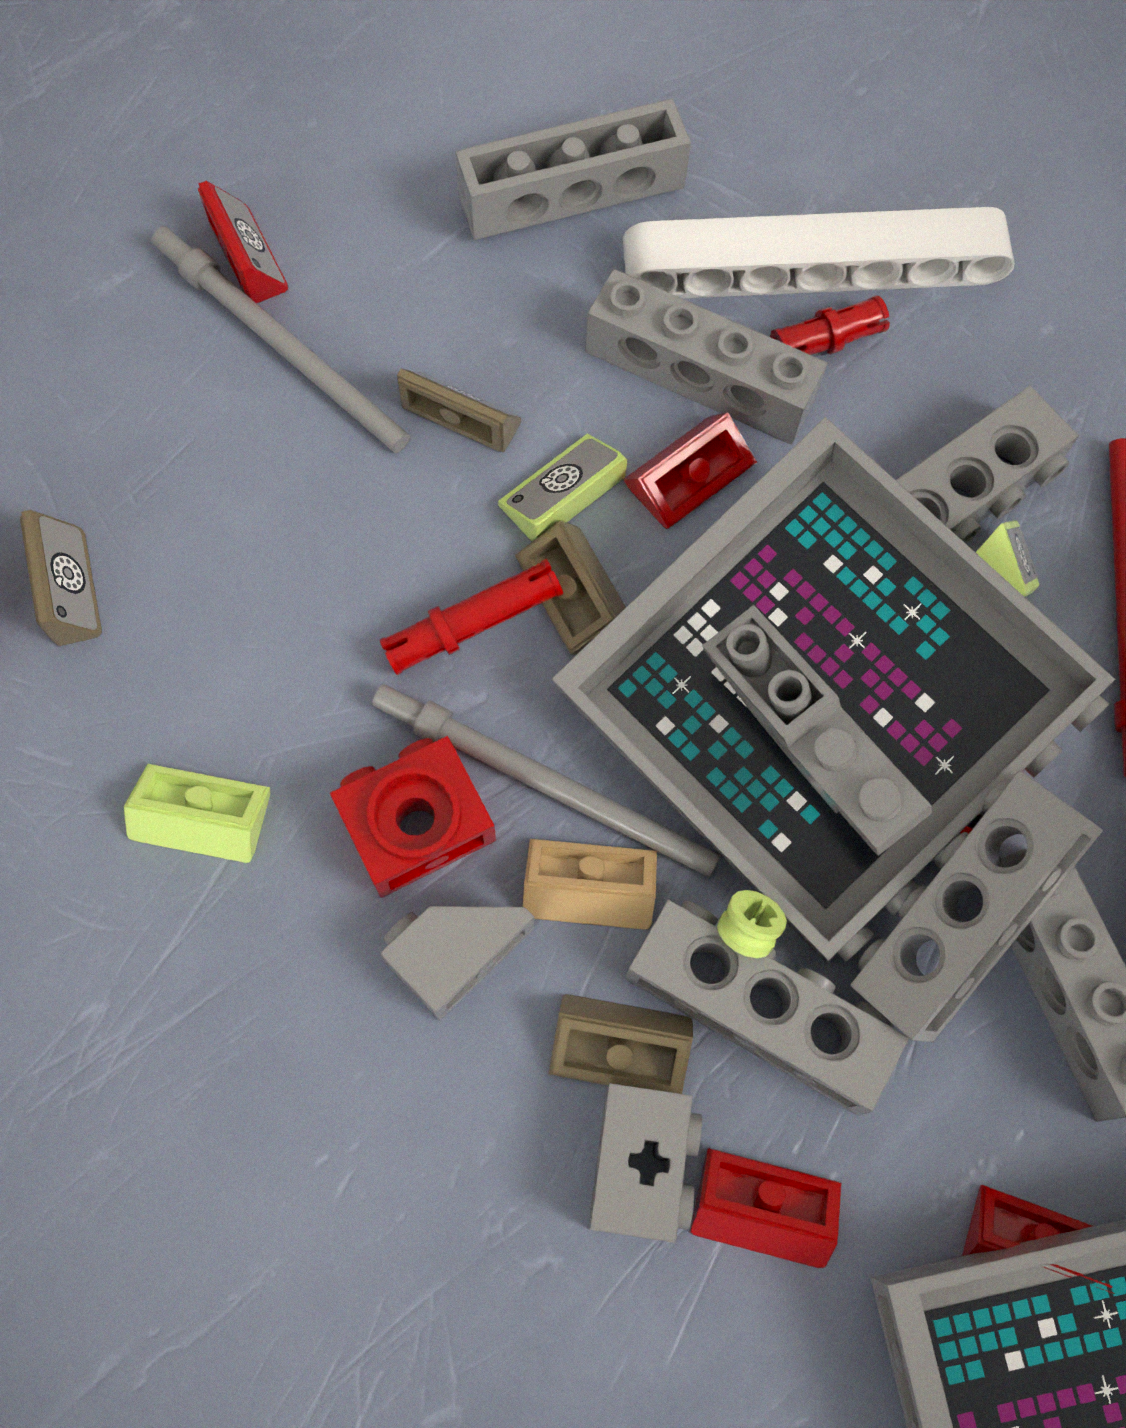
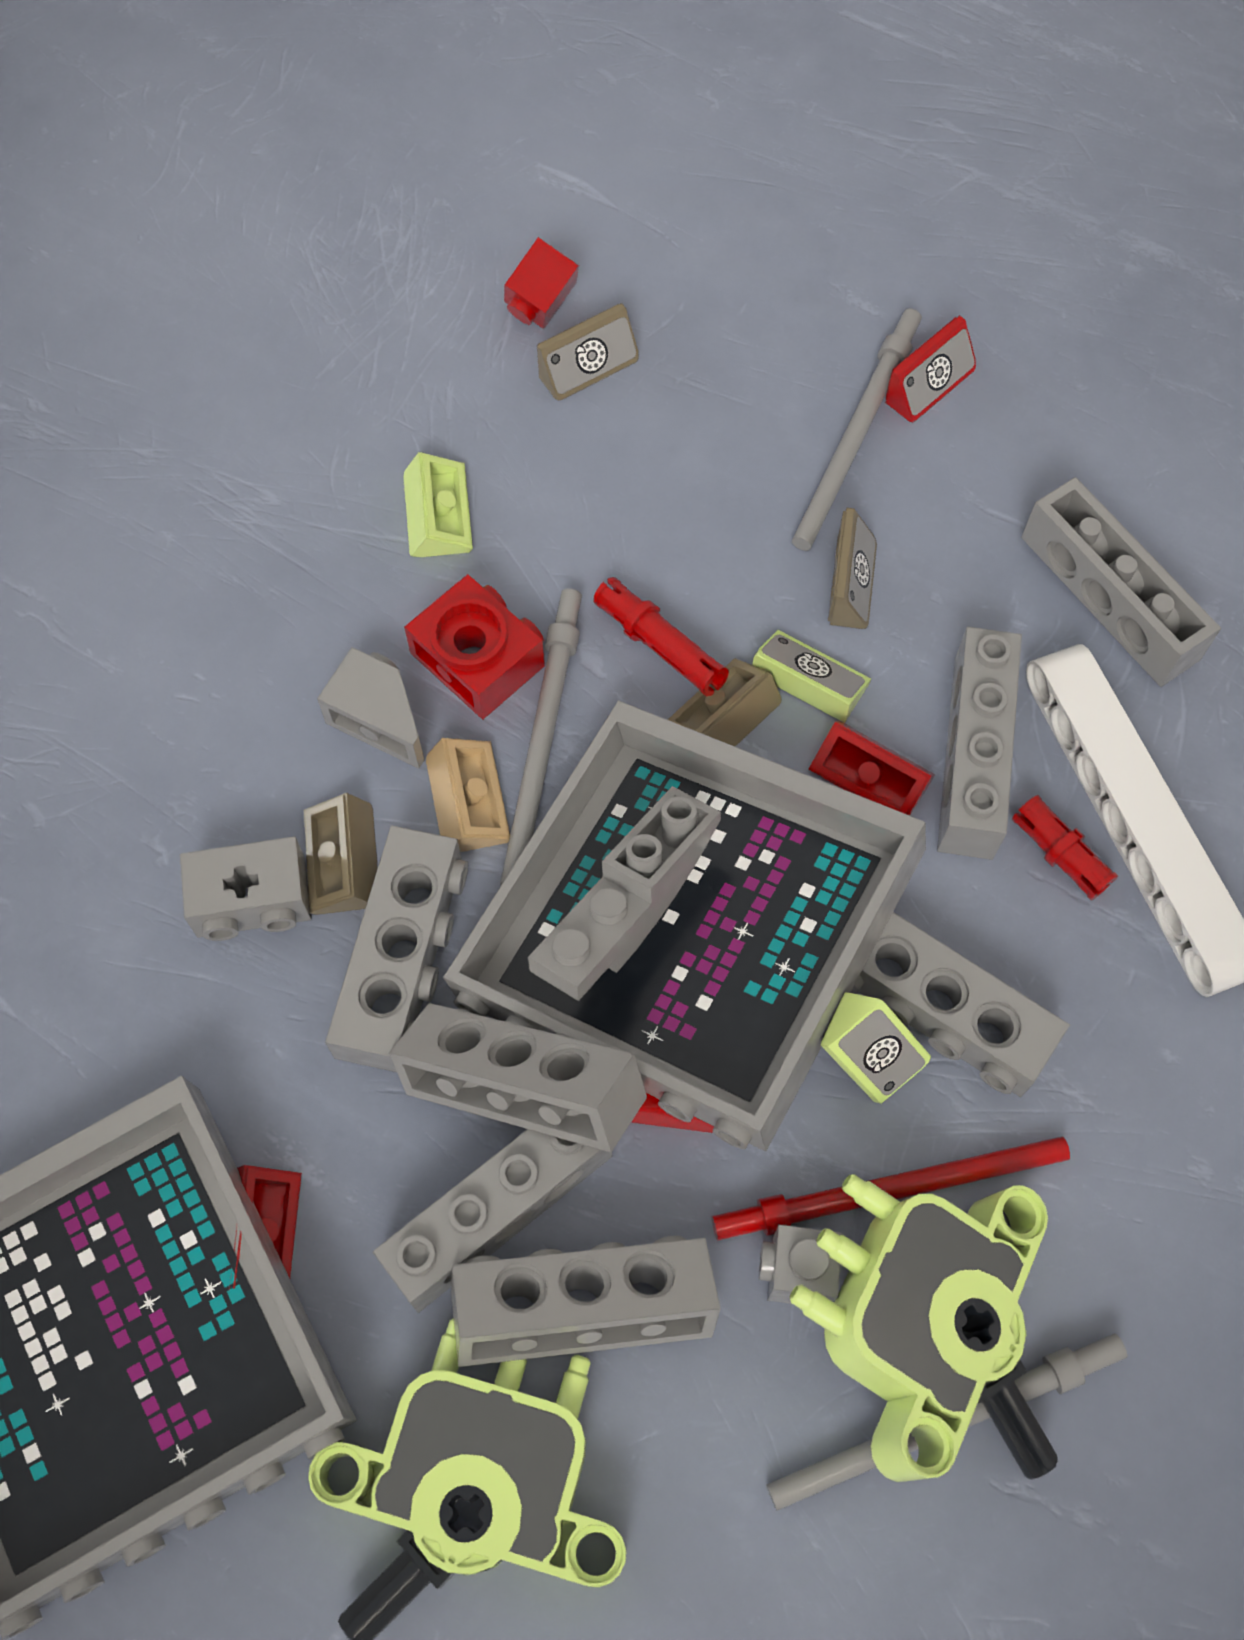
camera: 75 degrees right, 5 degrees down
(751, 924) = (470, 901): yellowish green bush -> none
(767, 1209) = (239, 1000): red slope -> none

